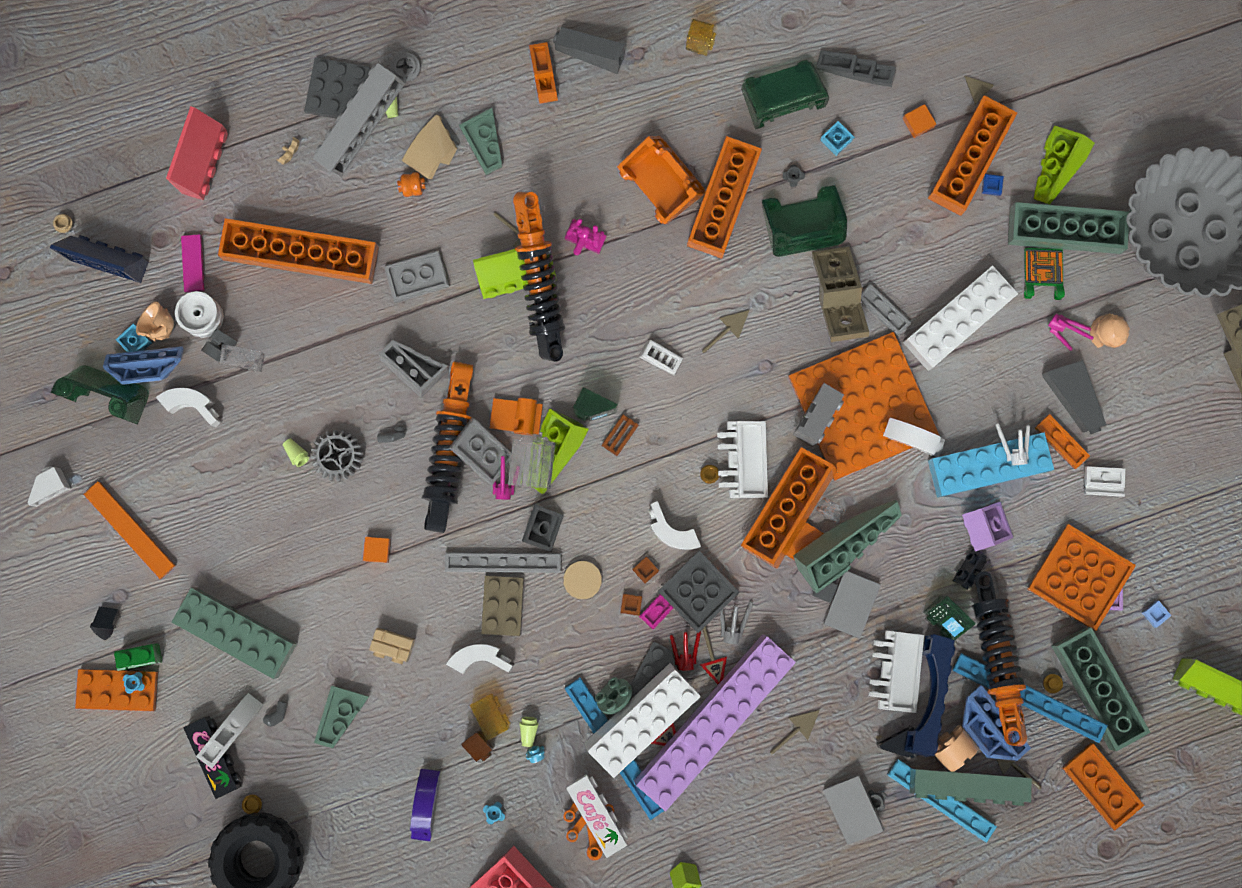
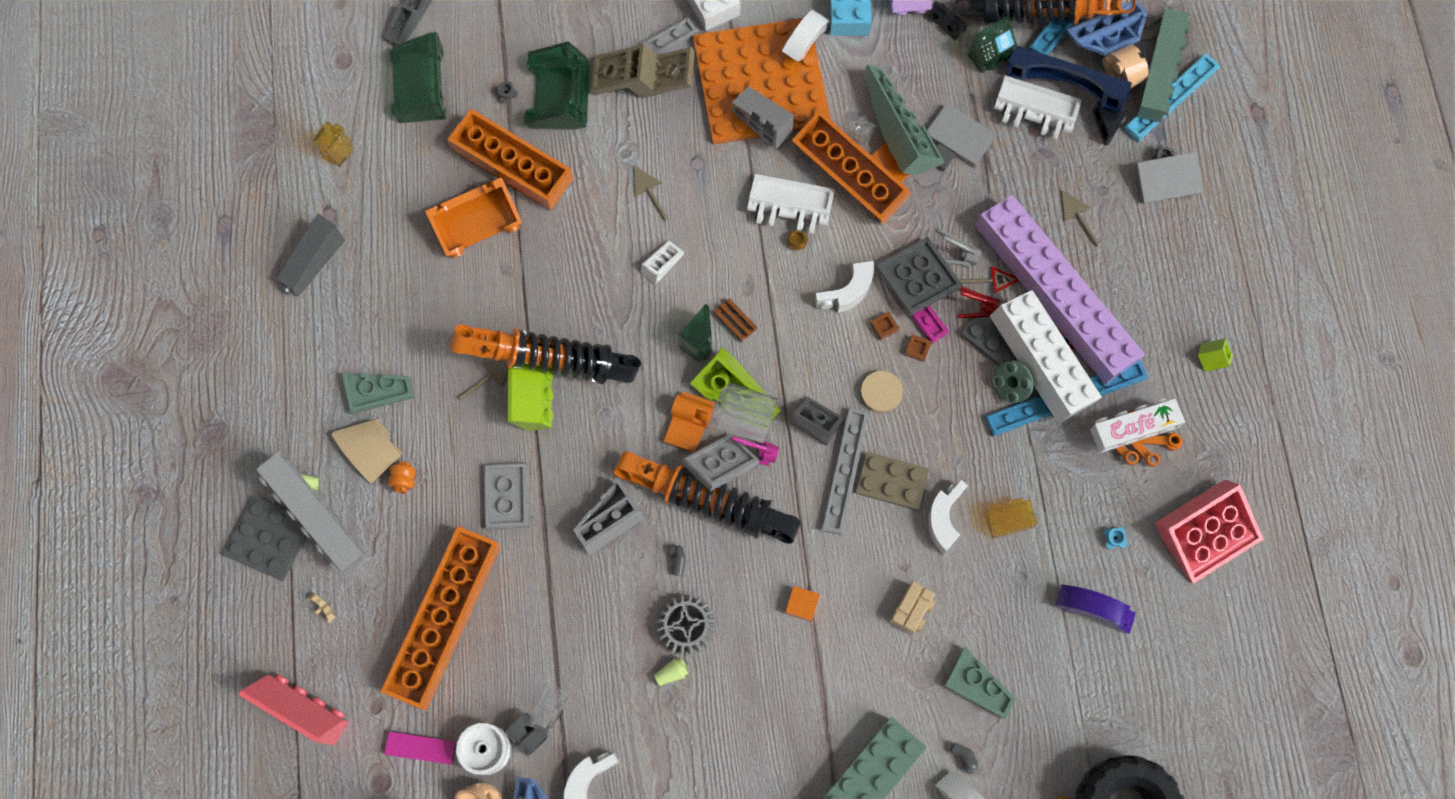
camera: 75 degrees left, 10 degrees down
(399, 61) = (262, 449): light grey gear -> none
(478, 746) = (1040, 536): reddish brown slope -> none
(528, 730) = (1032, 481): yellowish green cone -> none
(535, 754) = (1059, 479): medium azure plate -> none
(543, 72) = (320, 312): orange slope -> none
(585, 237) = (512, 307): dark pink piece -> none
(837, 138) = (479, 42): medium azure piece -> none

